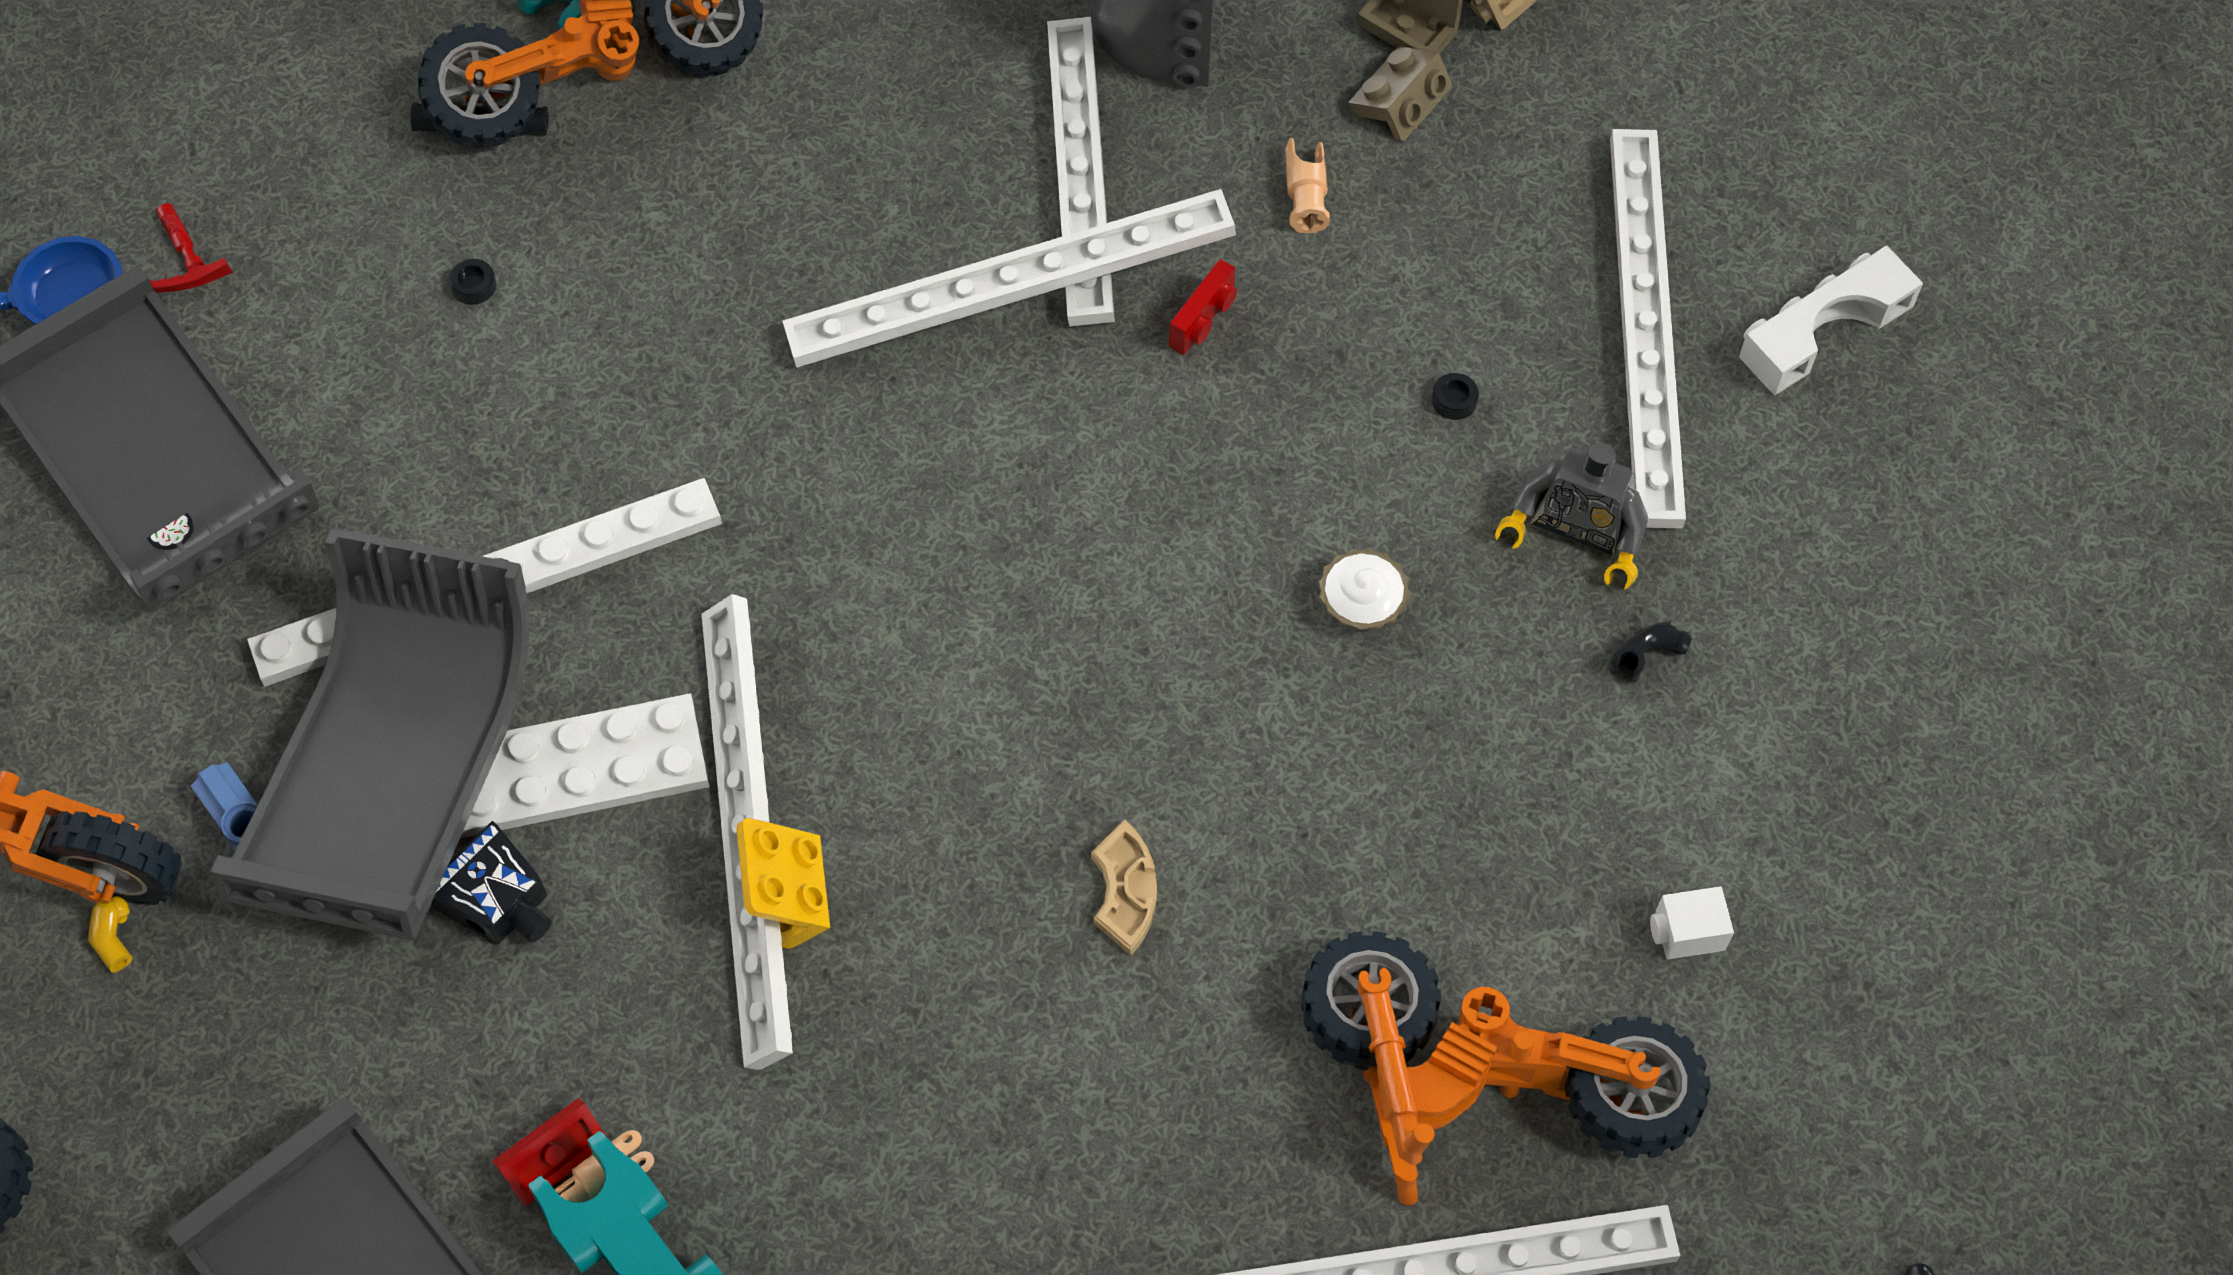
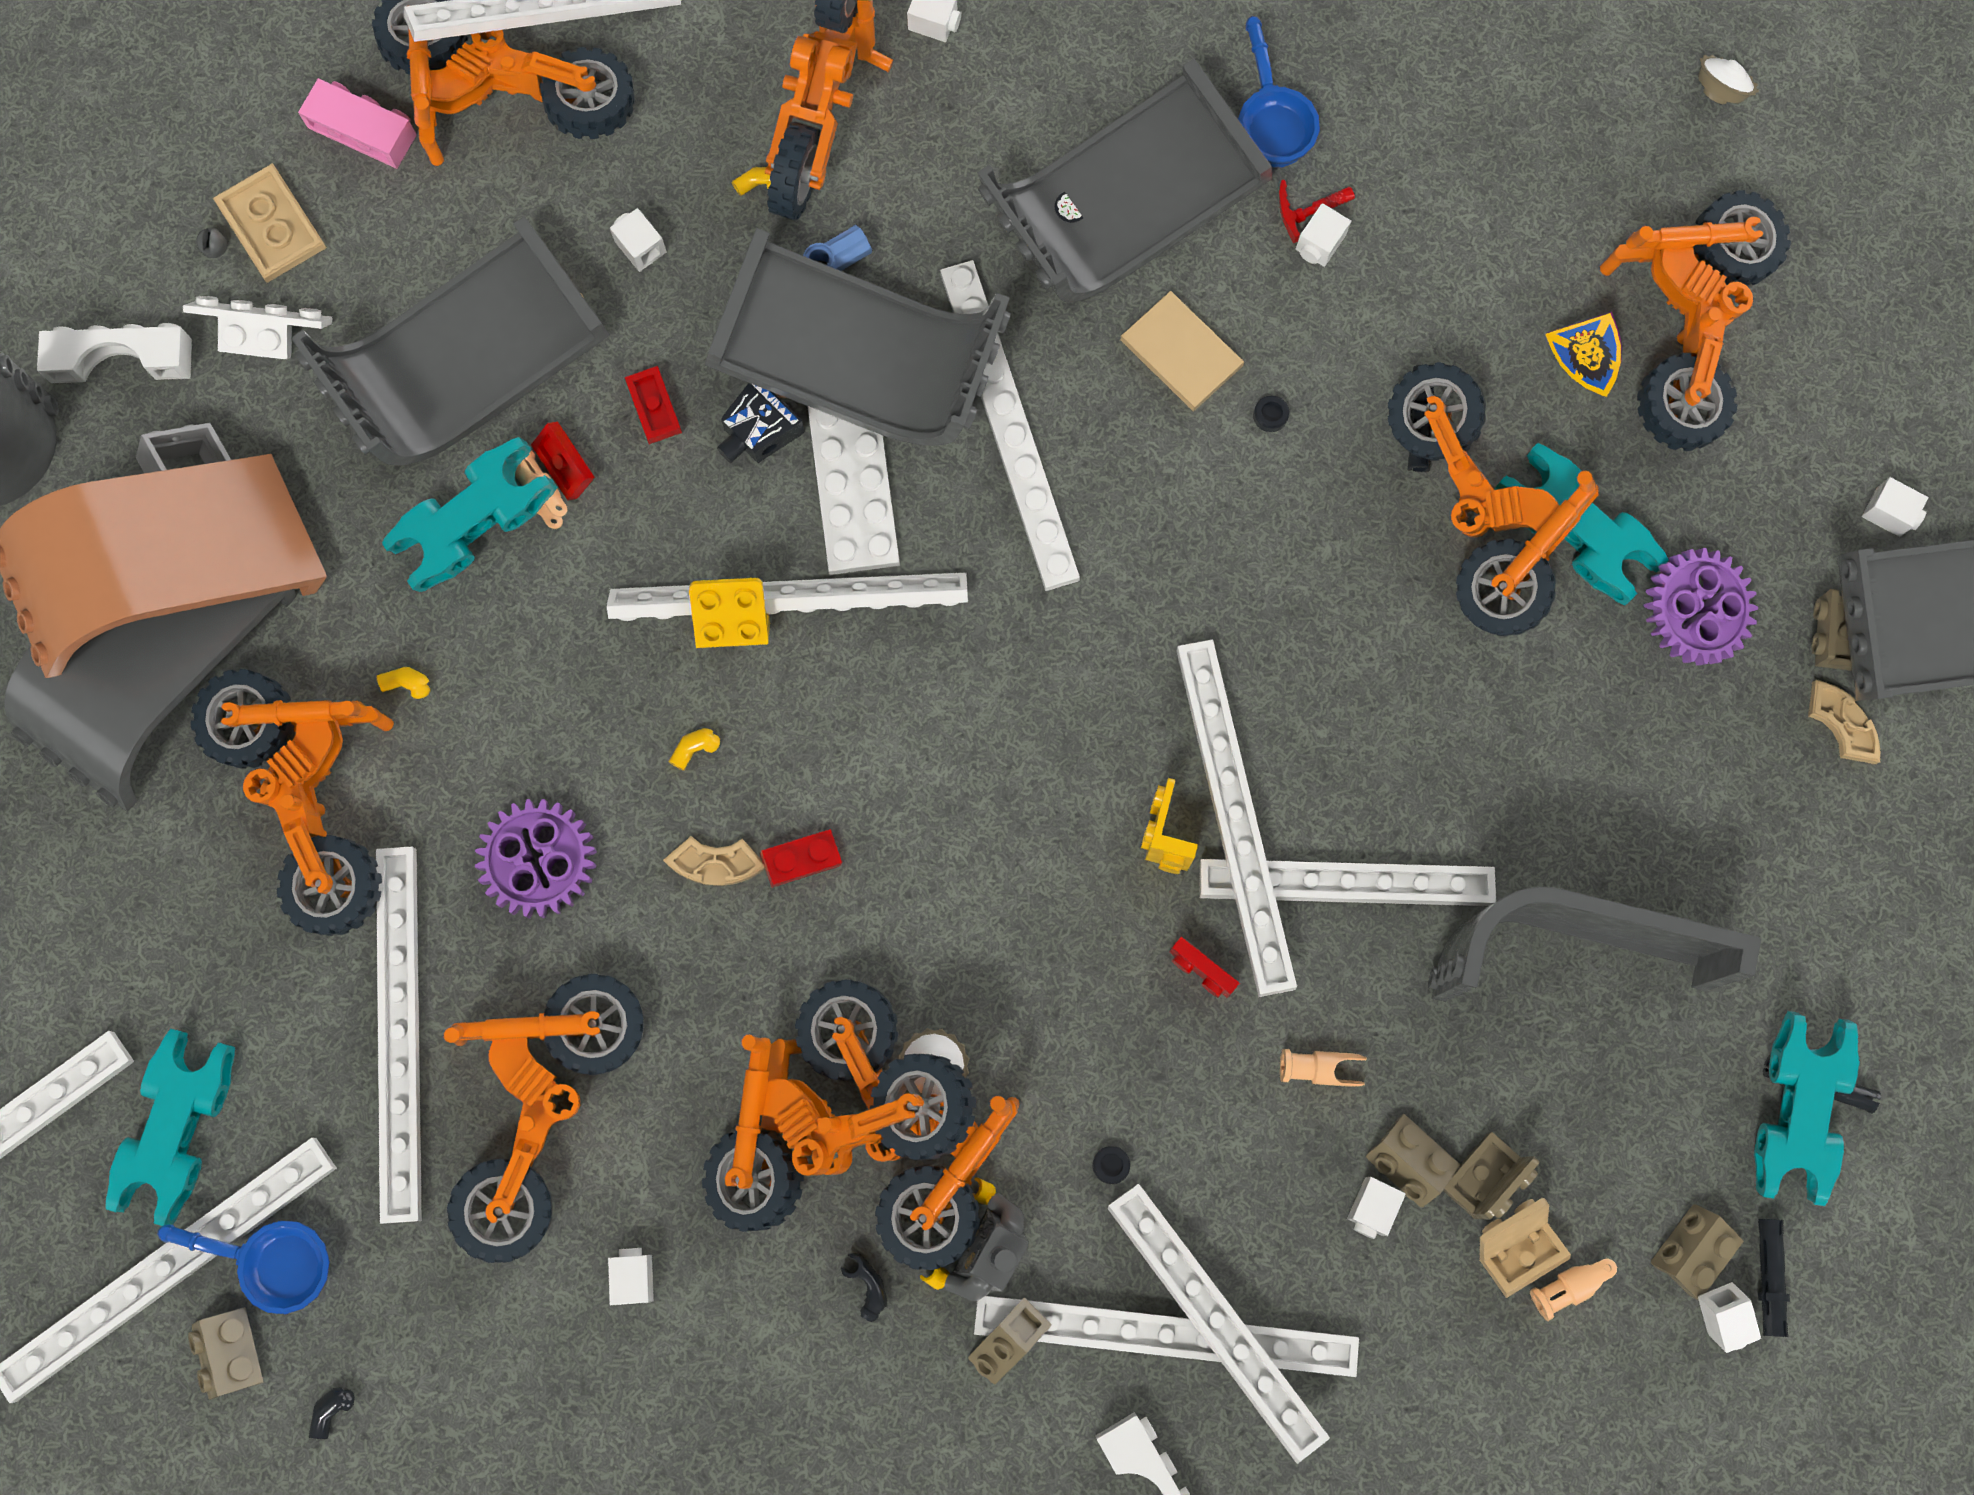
camera: 95 degrees right, 15 degrees up
(199, 1086) = (637, 239): none -> white brick
(227, 230) = (1322, 235): none -> white brick
(384, 385) = (1182, 351): none -> tan tile
(462, 1037) = (653, 405): none -> red plate
(962, 931) = (692, 743): none -> yellow arm
(1035, 353) = (1169, 852): none -> yellow bracket
(1111, 776) = (801, 858): none -> red plate
(1171, 1153) = (565, 845): none -> medium lavender gear
(1461, 522) = (864, 1064): none -> piece
(1462, 121) = (1375, 1208): none -> white brick
(1478, 661) = (809, 1126): none -> piece
(1622, 261) = (1218, 1324): none -> white plate
(1694, 468) = (1009, 1341): none -> dark tan bracket

